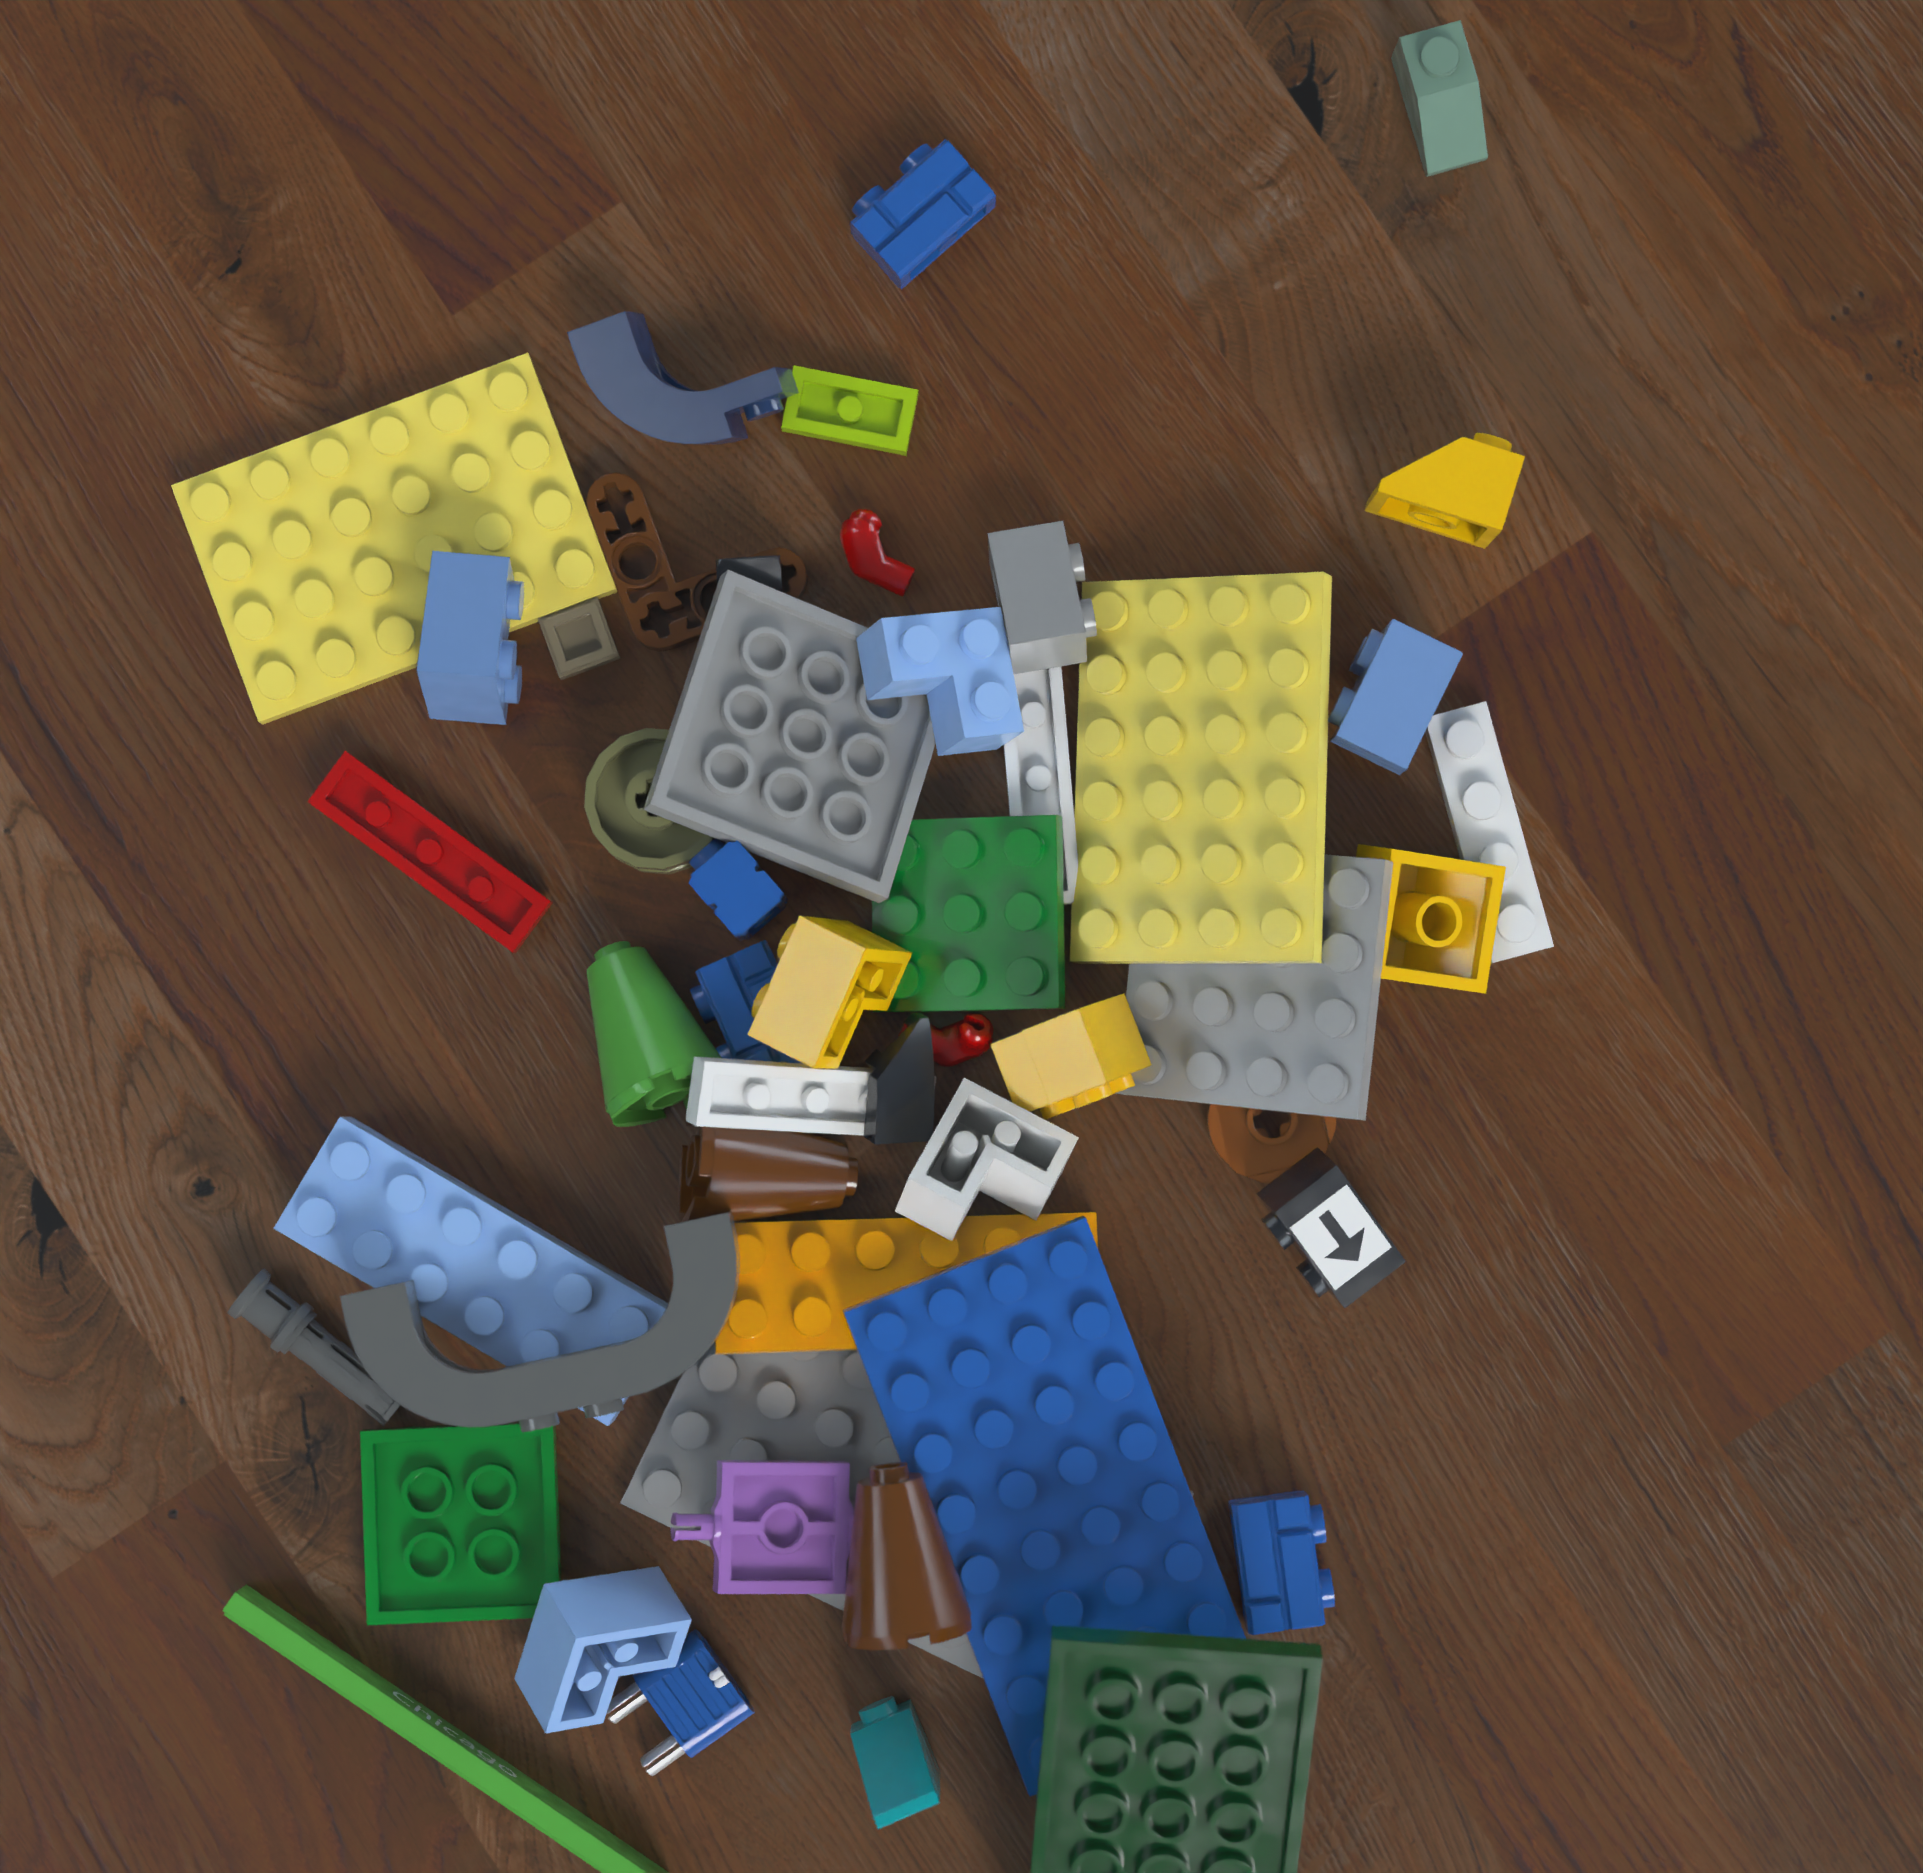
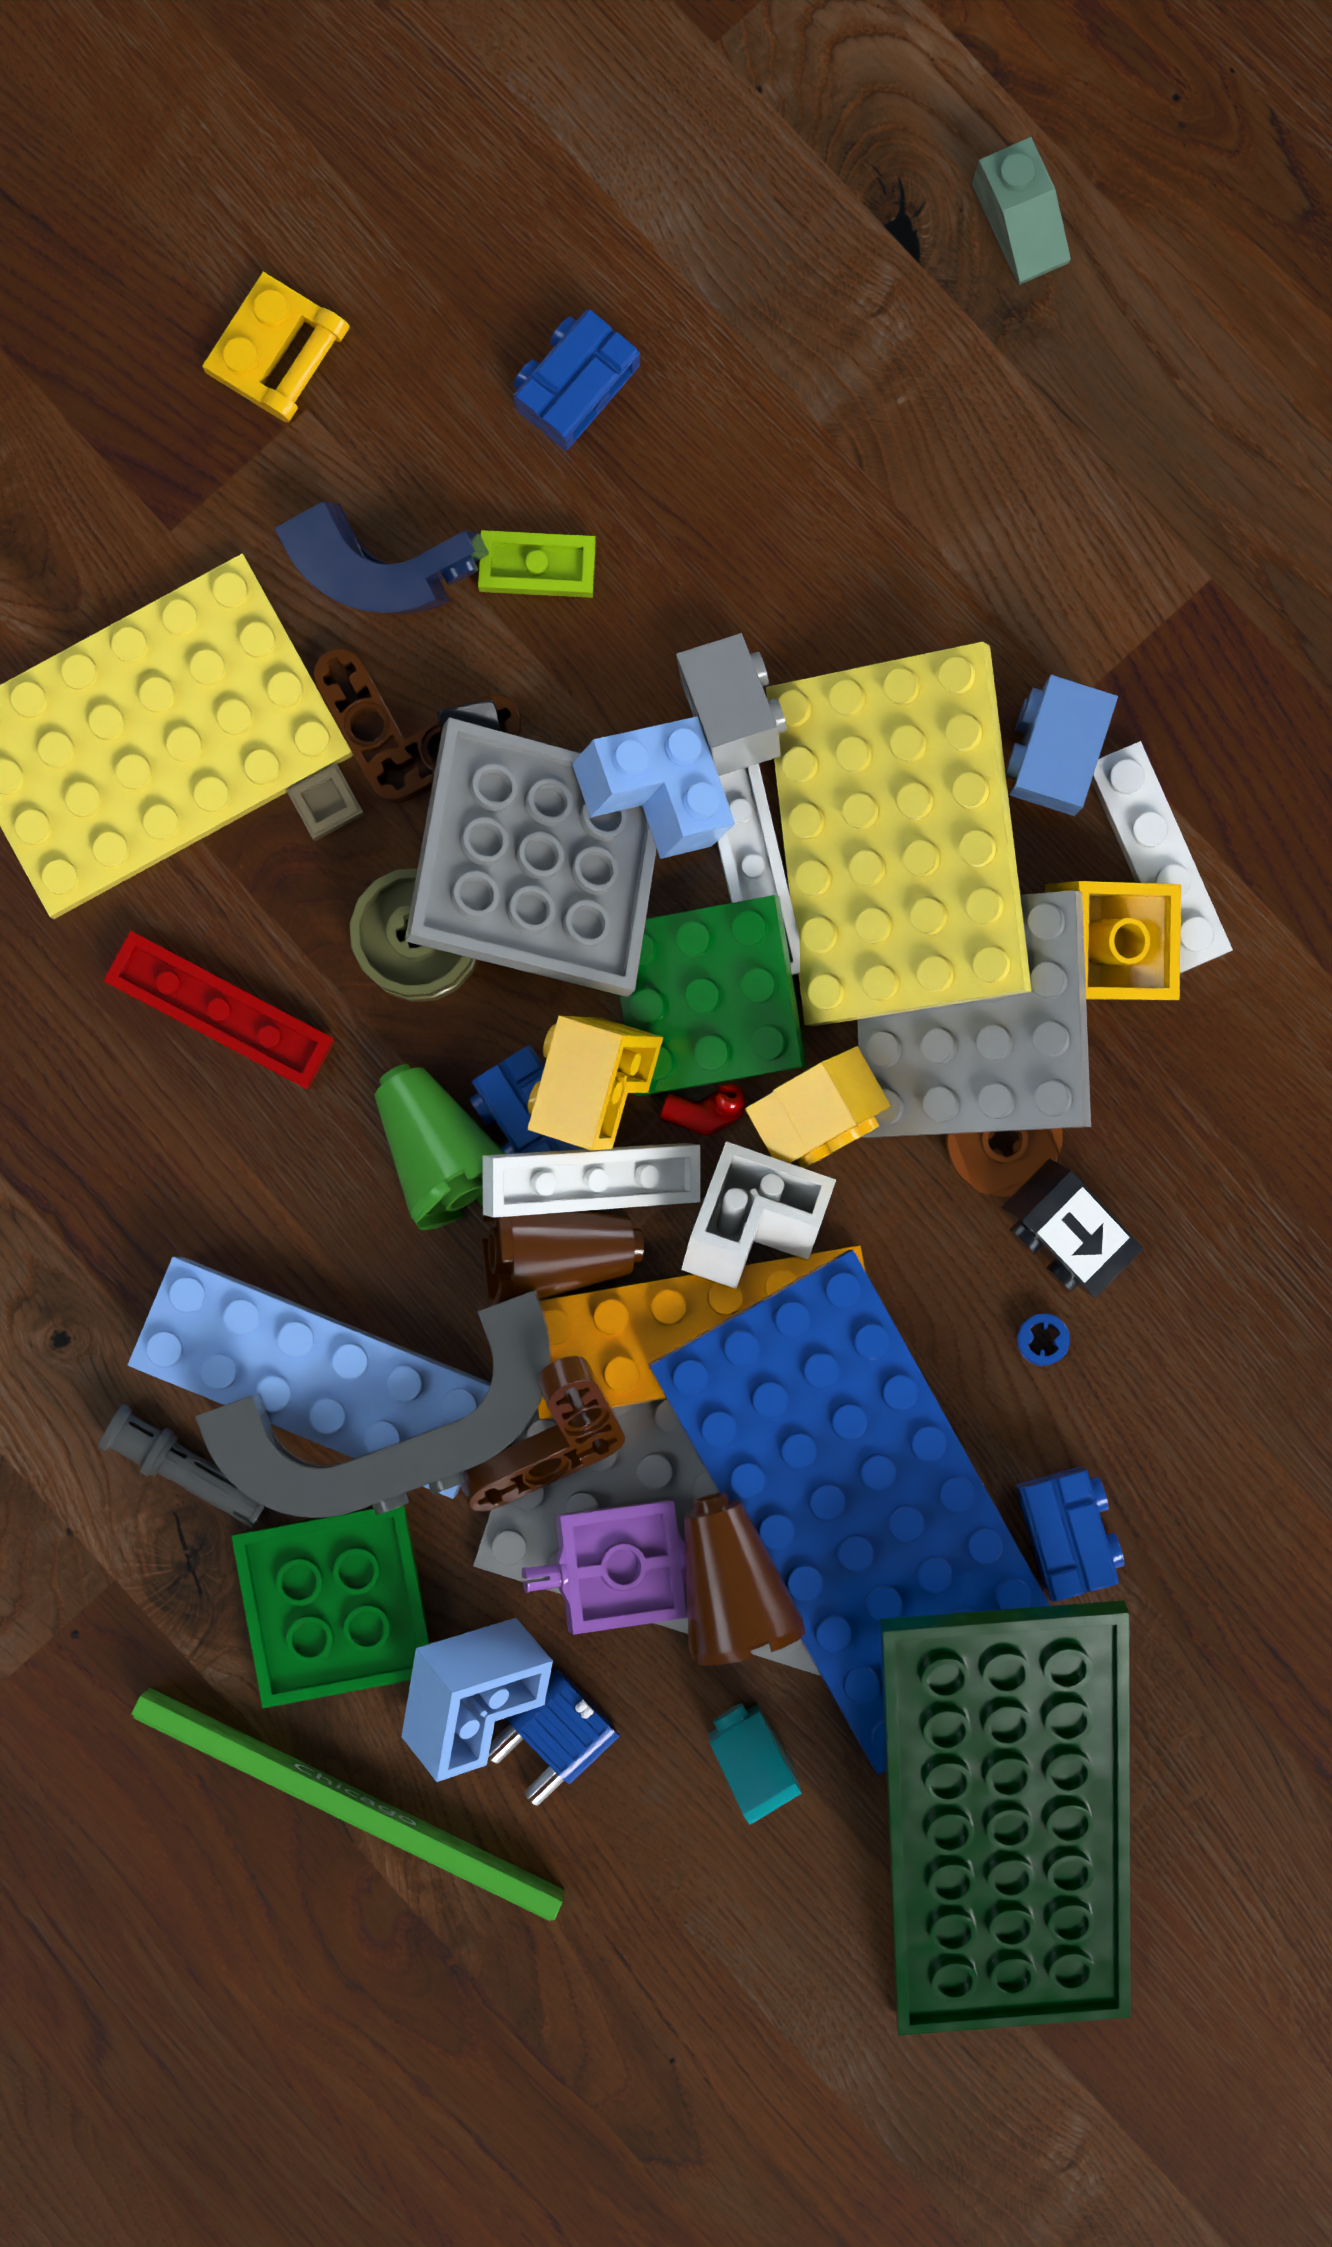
camera: 10 degrees left, 0 degrees up
(464, 644) = (223, 815): medium blue brick -> none
(583, 115) = (261, 337): none -> yellow plate
(736, 888) = (498, 1001): blue brick -> none
(760, 1378) = (583, 1435): none -> reddish brown beam
(866, 555) = (570, 691): red arm -> none
(902, 1087) = (672, 1158): black slope -> none
(1301, 1351) = (1061, 1342): none -> blue bush
(1454, 490) = (1086, 557): yellow slope -> none

